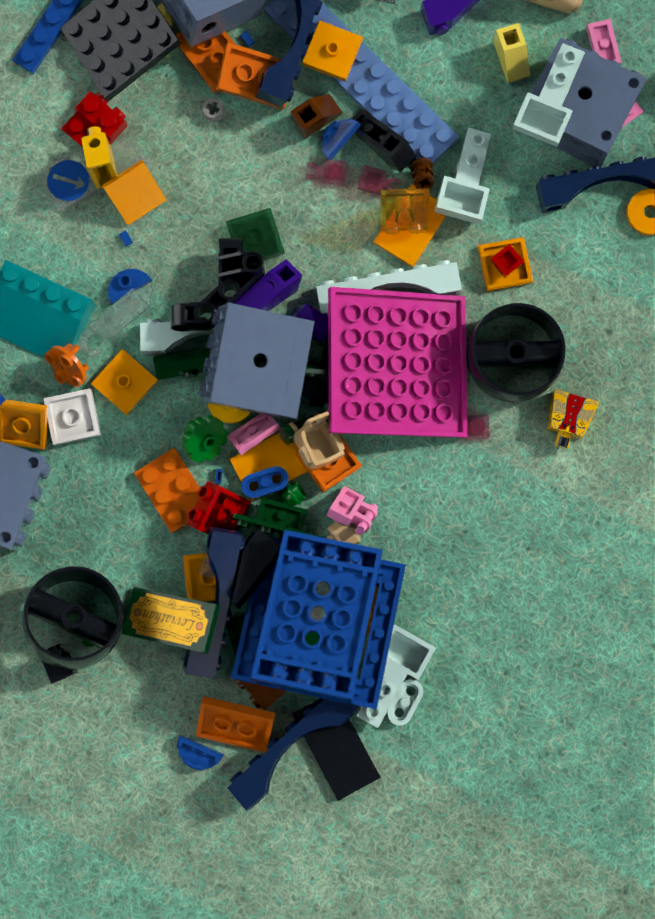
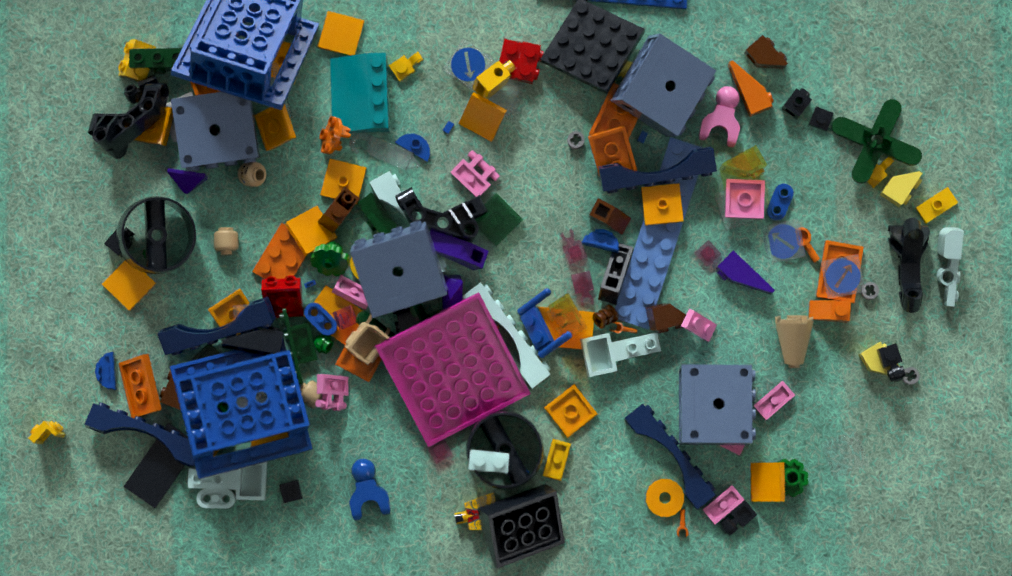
camera: 65 degrees right, 0 degrees up
(29, 554) = (187, 180): none -> dark purple slope
(34, 252) = (403, 68): none -> yellow plate
(62, 477) = (252, 174): none -> tan head
(72, 417) = (299, 158): white plate -> none
(113, 679) = (128, 285): none -> light orange tile
(121, 544) = (226, 240): none -> tan head
(153, 402) = (338, 210): none -> reddish brown slope
(159, 444) = (308, 231): none -> light orange tile
(171, 620) = (189, 303): tile -> none
(195, 241) = (470, 178): none -> bright pink plate
(229, 866) = (41, 432): none -> yellow bracket
(277, 454) = (345, 317): none -> clear pink plate
(398, 251) = (537, 327): none -> blue plate
(409, 34) = (707, 253): none -> clear pink plate
(439, 613) = (291, 491): none -> black plate
(442, 166) = (620, 328): none -> orange hand
(456, 109) = (663, 317): none -> reddish brown slope
(480, 527) = (367, 489): none -> blue piece
(484, 78) = (699, 325): none -> bright pink plate
(507, 260) = (571, 410): red plate -> none
(512, 52) = (729, 336): light yellow slope -> none
(523, 371) = (488, 461): none -> light aqua plate
(544, 115) = (682, 381): light aqua plate -> none
(552, 303) = (556, 459): none -> yellow plate
(606, 375) = (522, 525): none -> black slope

